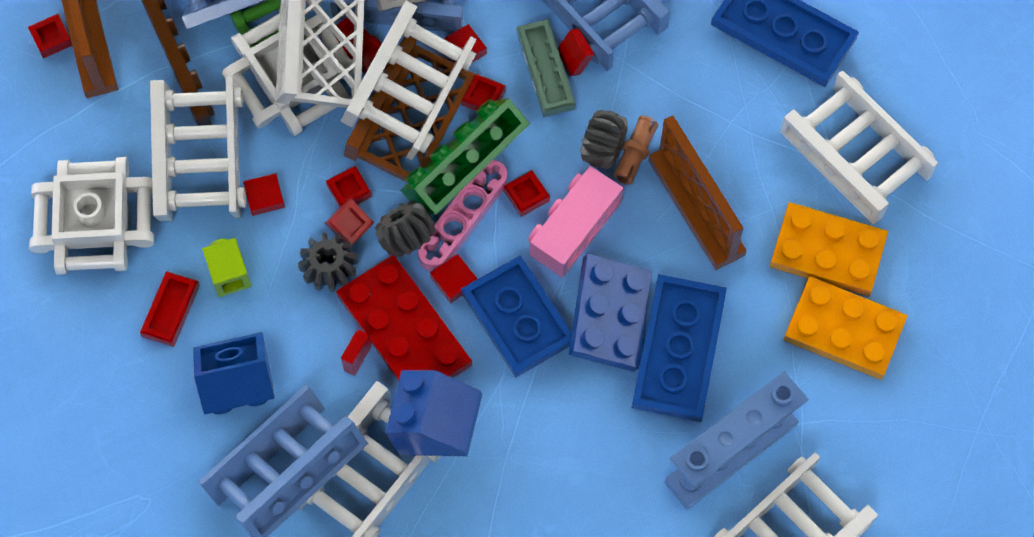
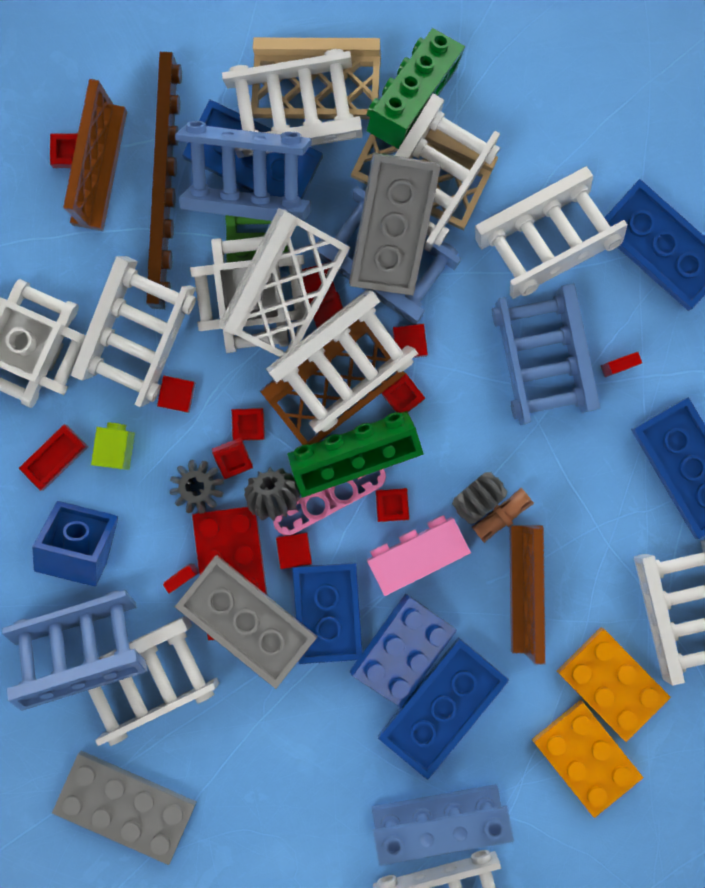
camera: 25 degrees right, 20 degrees up
(432, 414) = (209, 679): blue slope -> none
(455, 347) = (246, 621): none -> light grey plate
(545, 68) = (468, 399): sand green plate -> none
(575, 52) = (500, 399): red tile -> none

